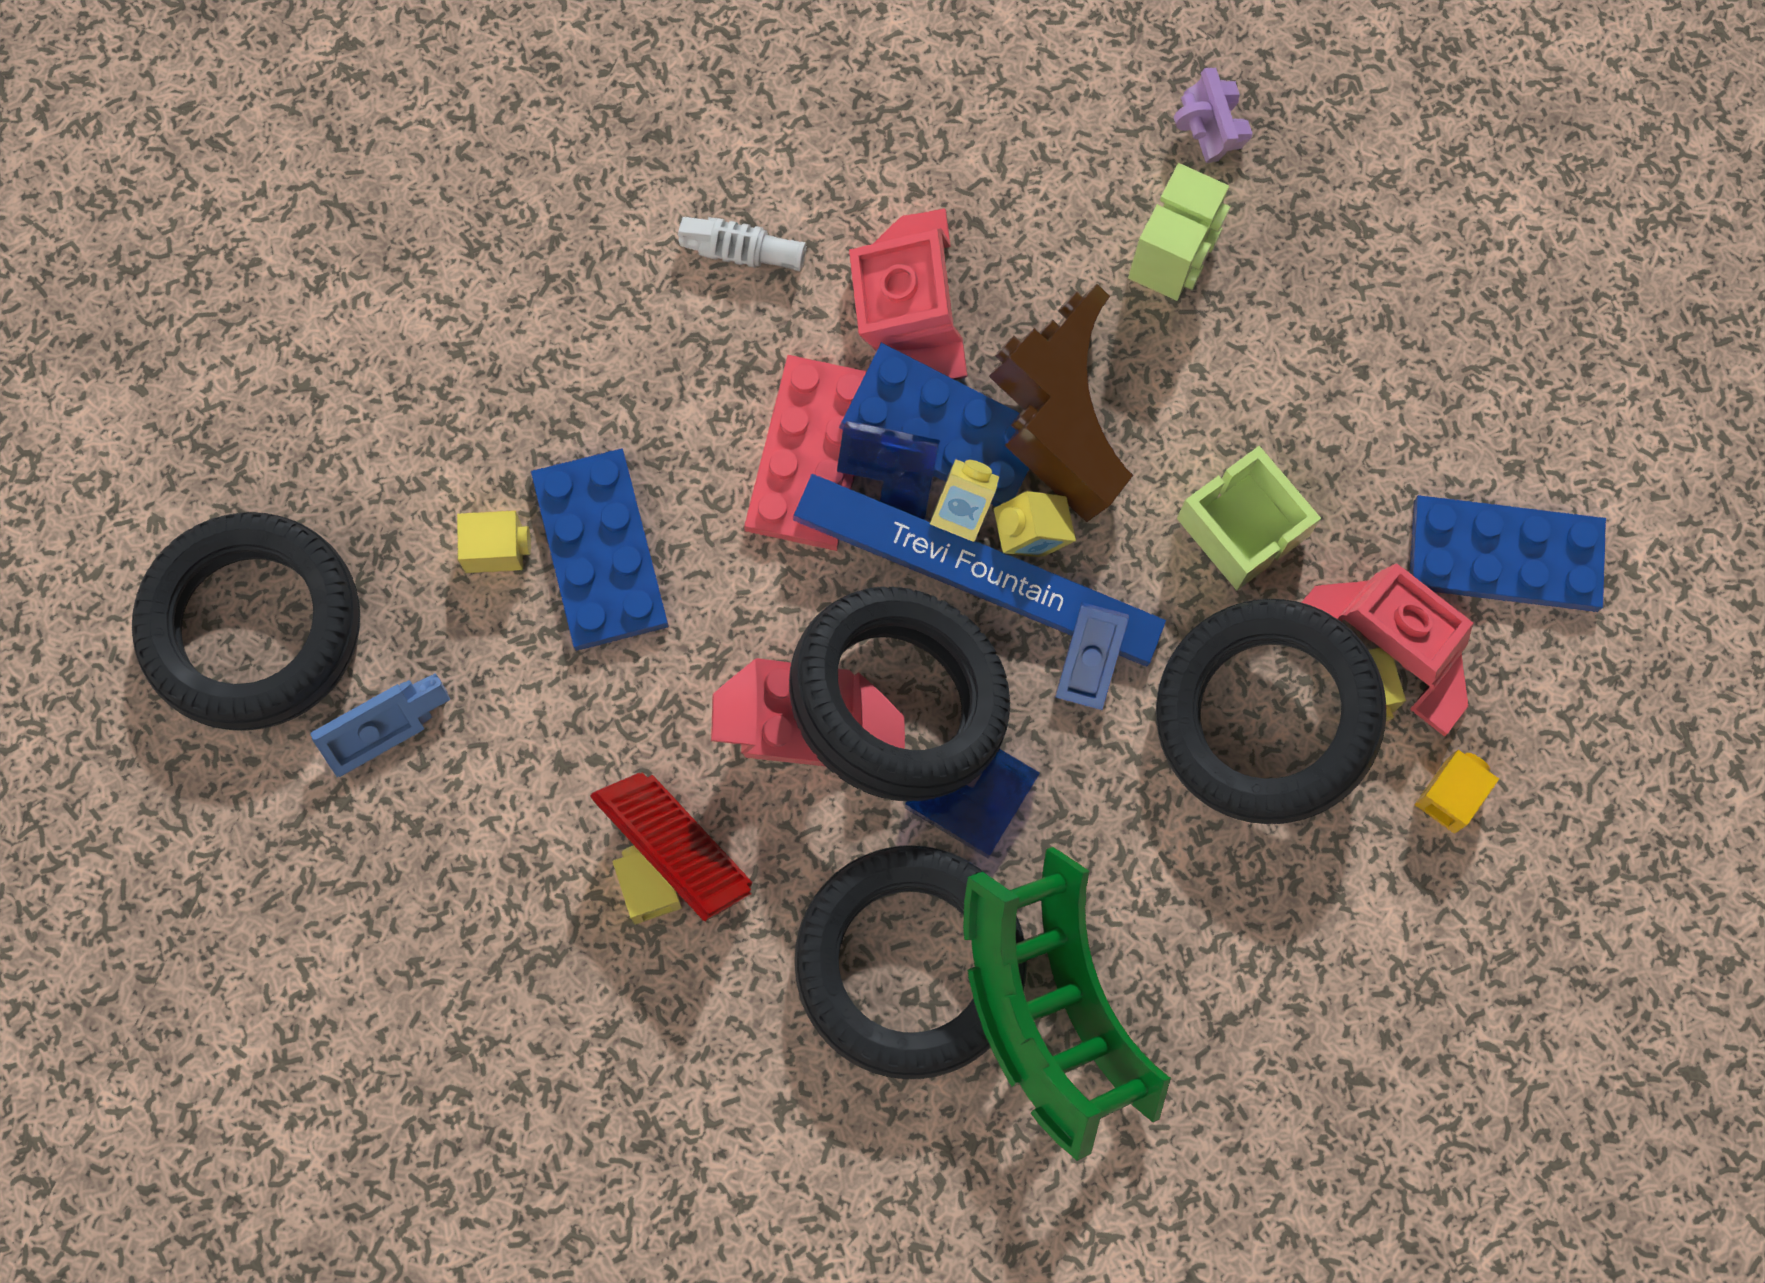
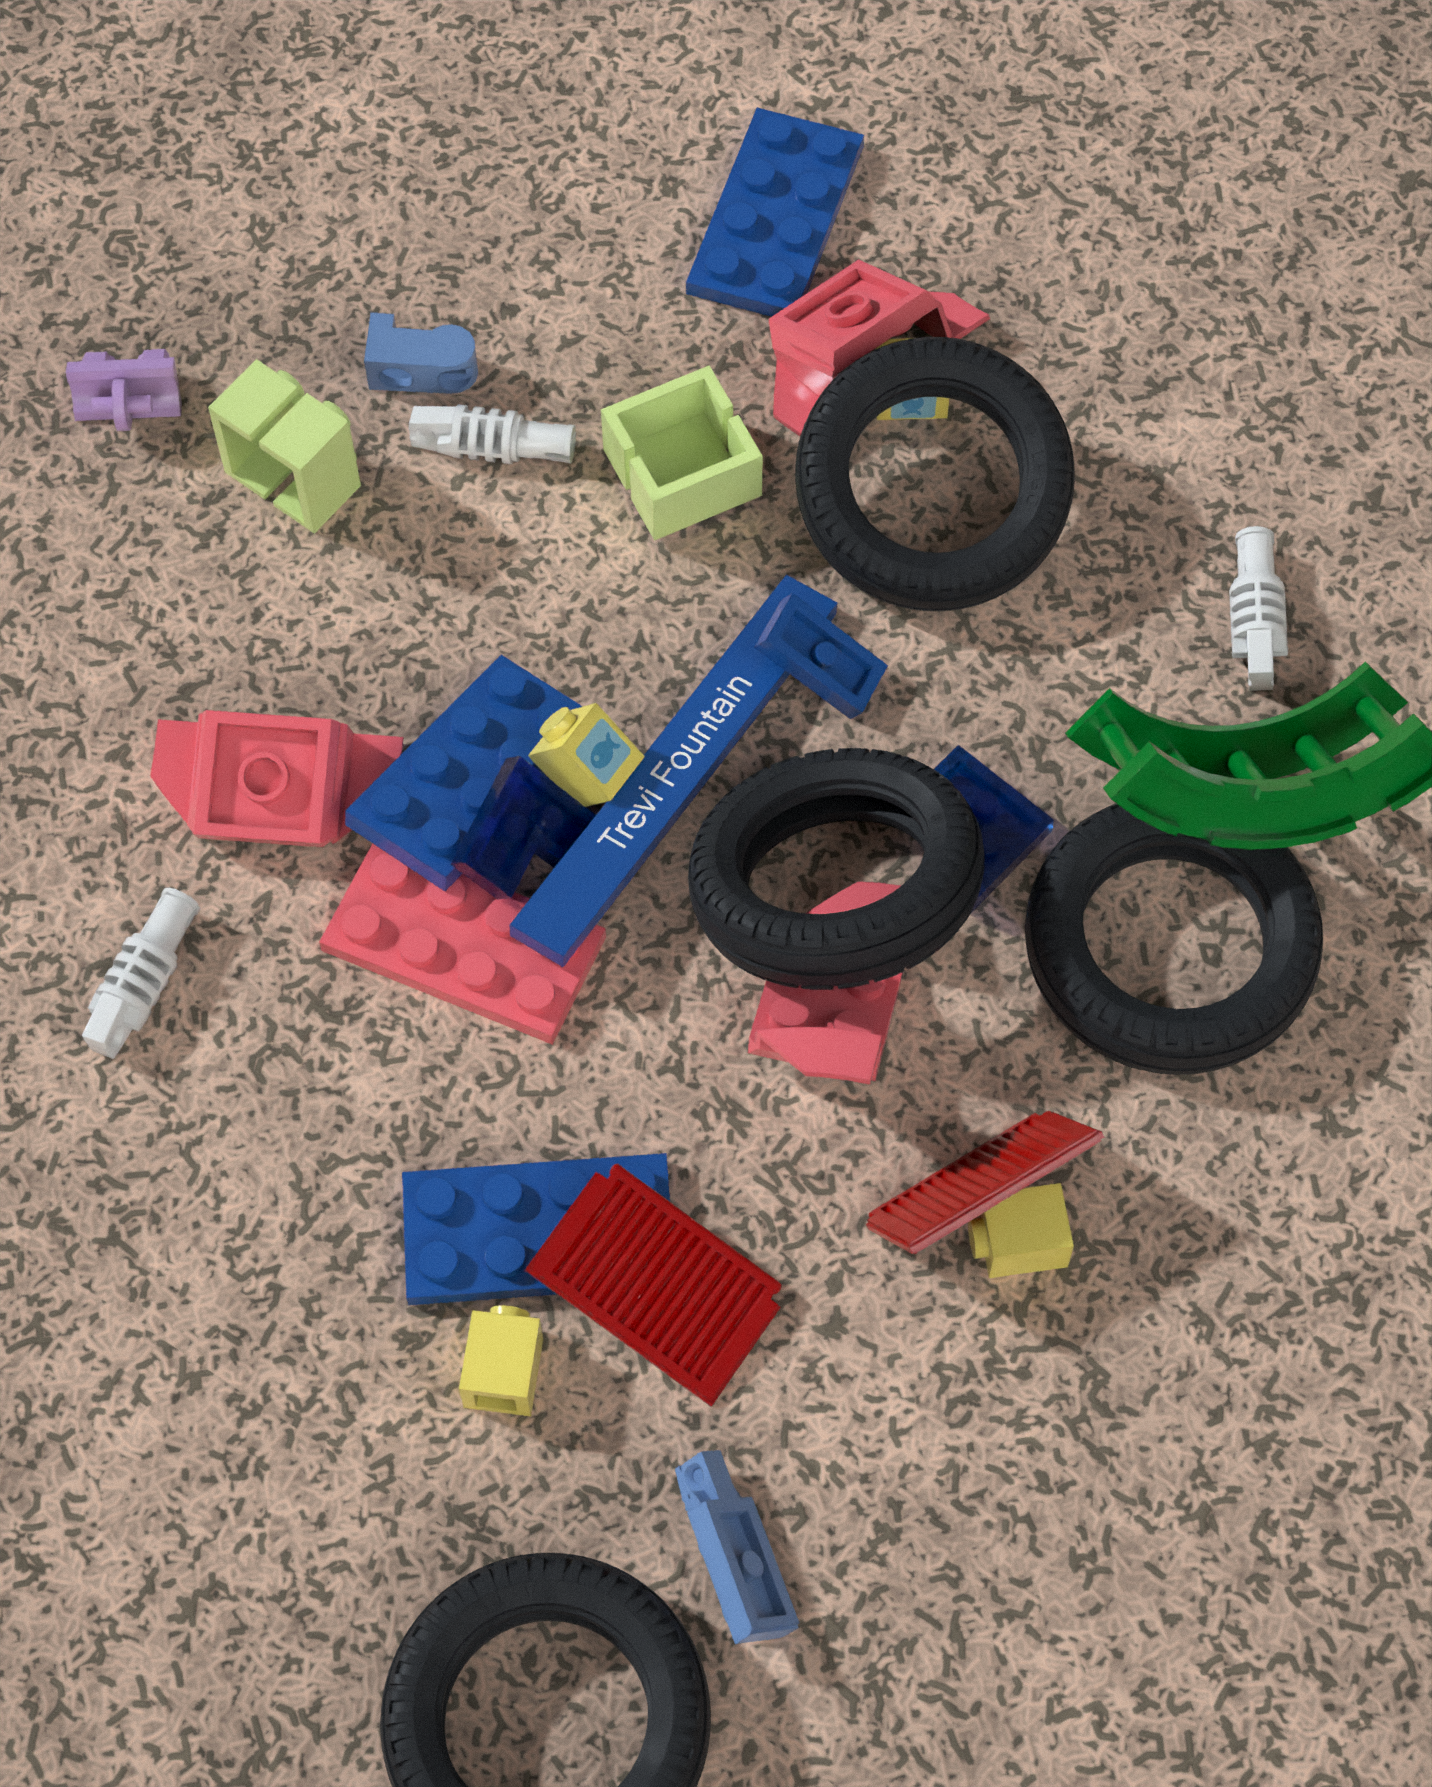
camera: 75 degrees left, 10 degrees down
(564, 633) = (658, 1282): none -> red window
(1034, 524) = (636, 685): light yellow brick -> none
(1059, 427) = (514, 629): reddish brown arch -> none
(1221, 992) = (1257, 607): none -> white hinge
(1238, 380) = (491, 434): none -> white hinge
(1290, 312) = (419, 358): none -> medium blue leg
(1457, 790) = (1058, 320): yellow brick -> none

